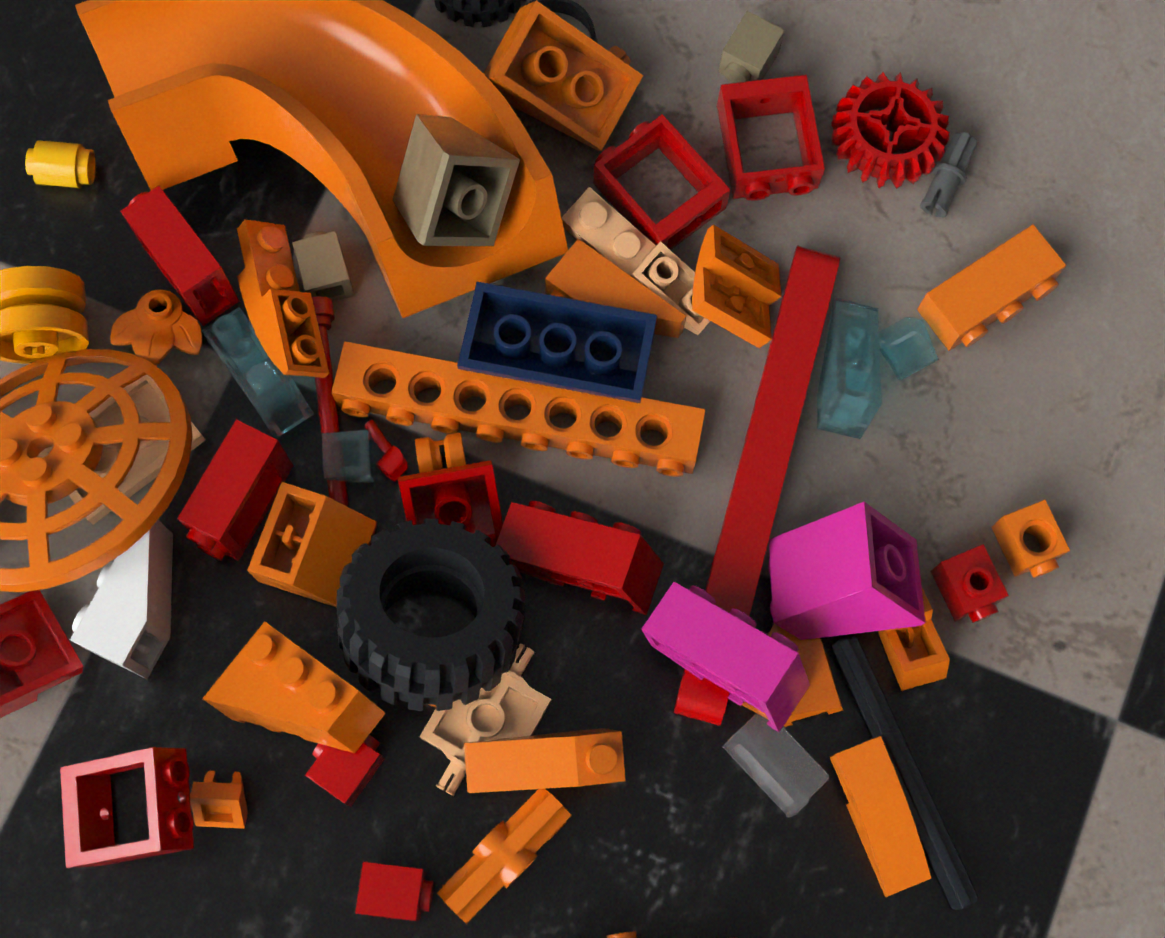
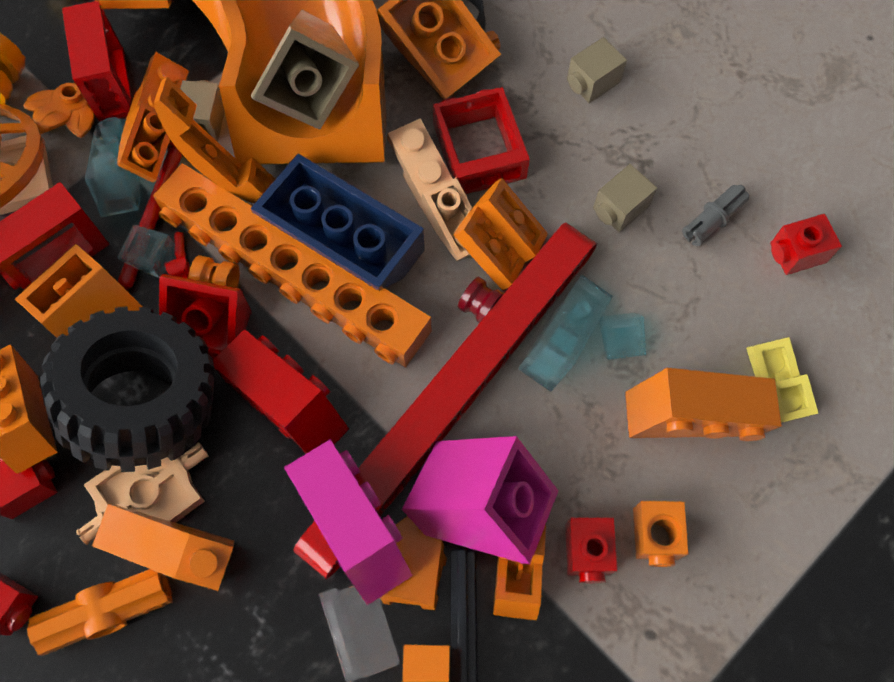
camera: 25 degrees right, 5 degrees down
(420, 333) = (203, 151): none -> orange slope
(594, 279) = (393, 187): orange slope -> none
(744, 369) = (478, 298): none -> dark red wheel
(765, 99) = (573, 103): red window -> none
(845, 193) = (624, 198): none -> dark tan brick
(914, 123) = (698, 179): red gear -> none
(992, 289) = (713, 314): orange brick -> none
(1020, 393) = (702, 405): none -> orange wedge
(1055, 173) = (805, 244): none -> red brick
(1089, 338) = (794, 390): none -> light yellow slope

